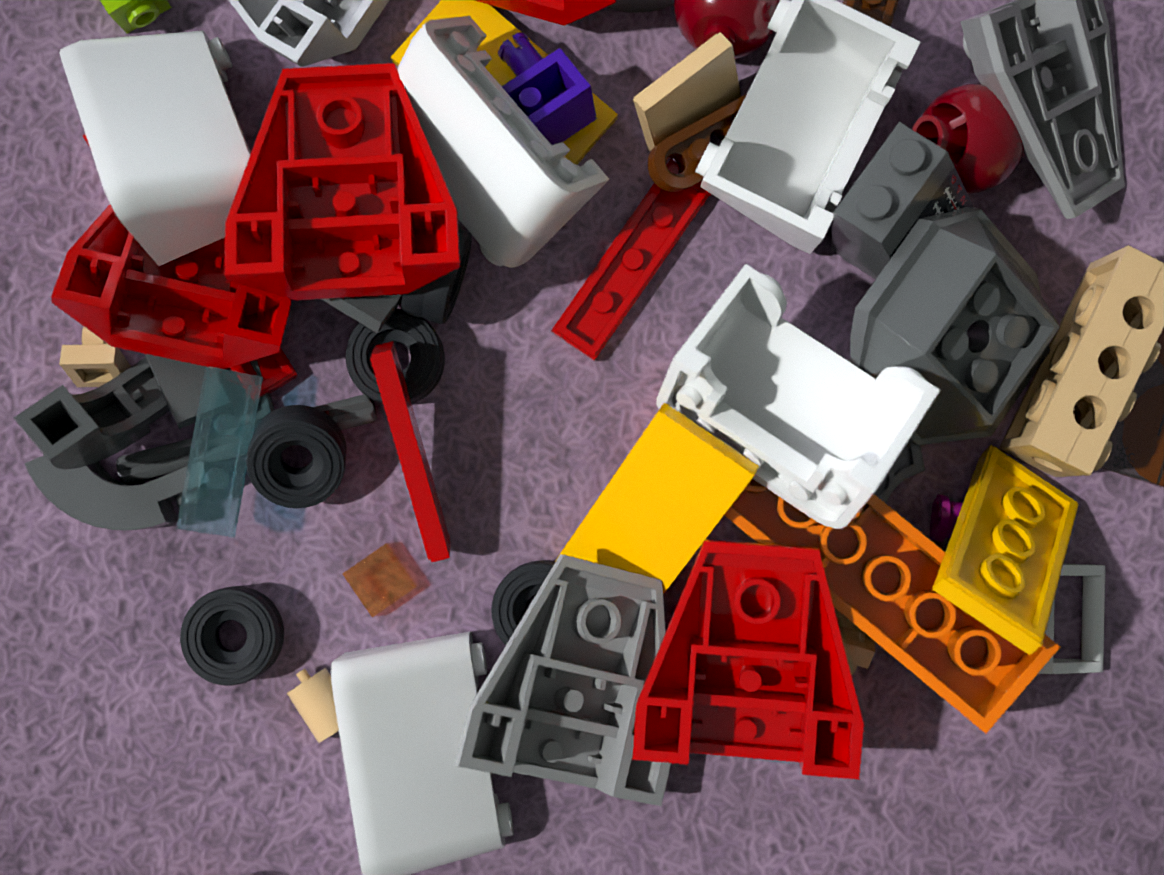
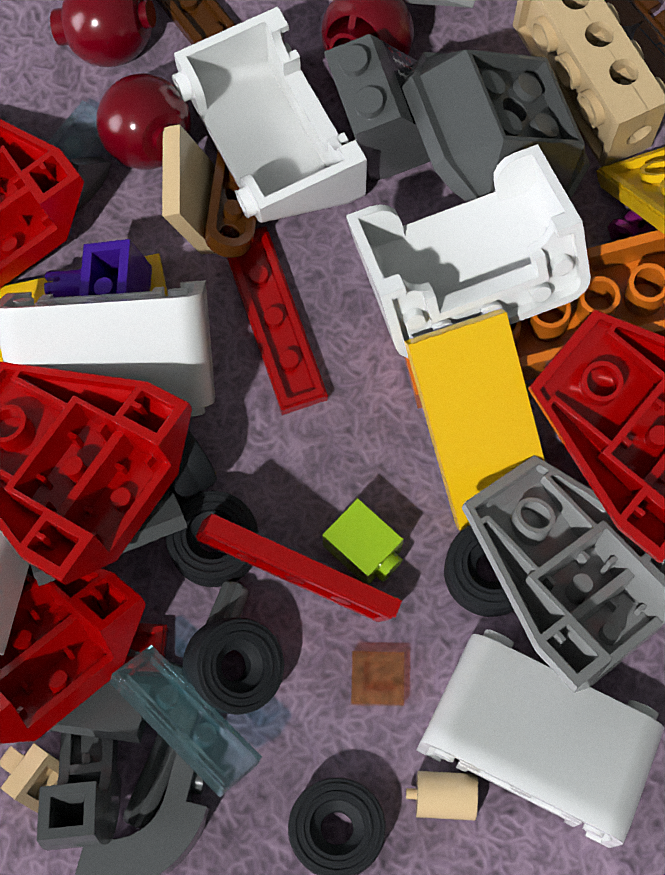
camera: 50 degrees left, 15 degrees down
(481, 489) = (364, 543): none -> lime brick

